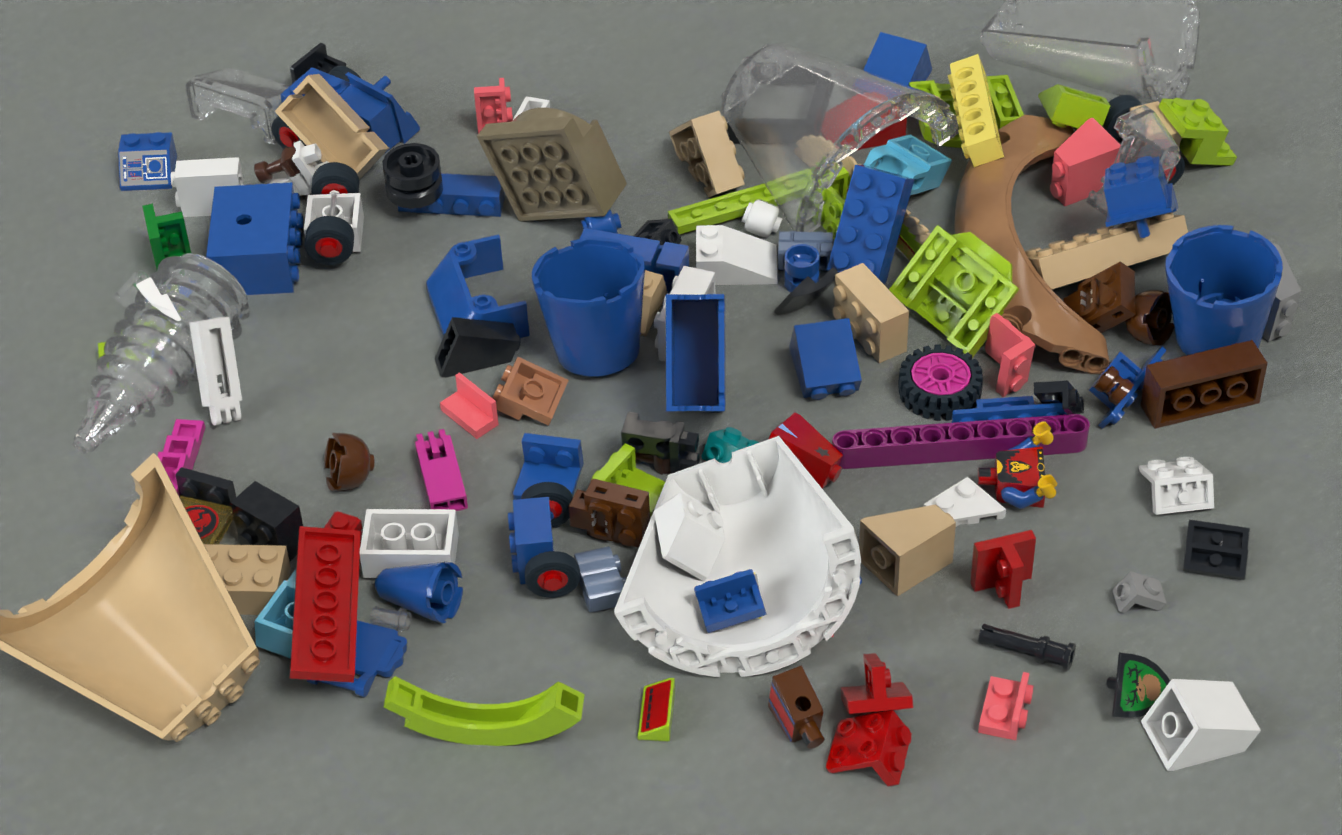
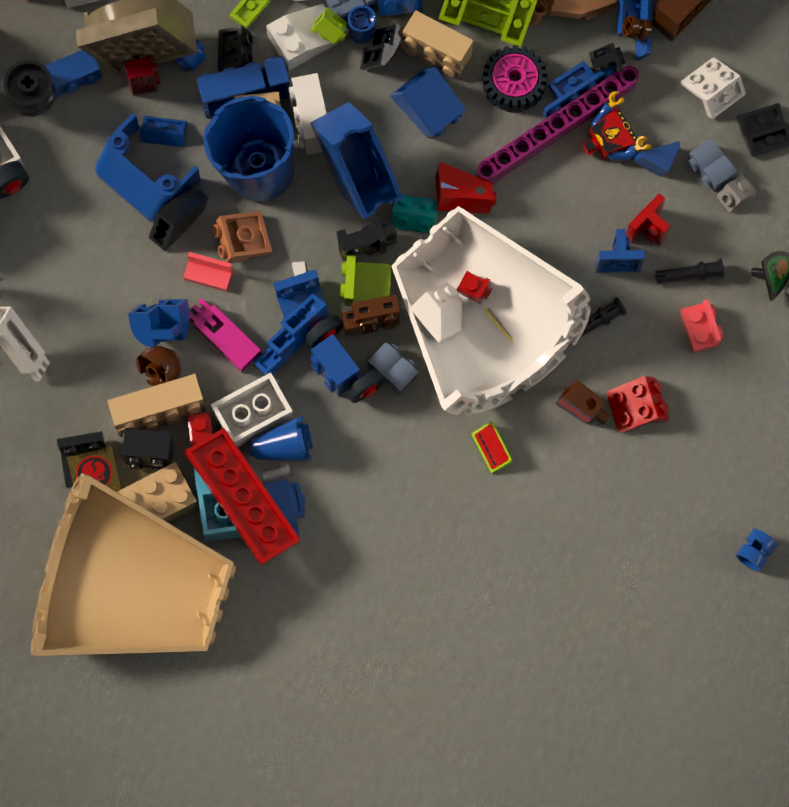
camera: 35 degrees left, 30 degrees up
(182, 447) = (36, 428): dark pink slope -> none
(315, 484) = (157, 405): none -> tan piece
(380, 422) = (160, 321): none -> blue brick
(485, 724) = (397, 516): lime arch -> none
(500, 498) = (291, 336): none -> blue slope
(517, 278) = (163, 131): none -> blue slope
(535, 218) = (142, 75): none -> dark red brick
(730, 600) = (493, 345): blue bracket -> none
(750, 540) = (474, 287): none -> red bracket
(763, 252) = (330, 26): none -> lime brick
(878, 691) = (624, 365): red bracket -> none
(885, 640) = (605, 315): none -> black pin
(907, 545) = (577, 239): tan slope -> none
(944, 584) = (621, 257): none -> blue bracket
(967, 503) = (587, 177): white wing -> none
(1011, 351) = (555, 31): coral bracket -> none
(1059, 515) = (658, 159): none -> blue slope
(1123, 551) = (711, 165): none -> sand blue brick

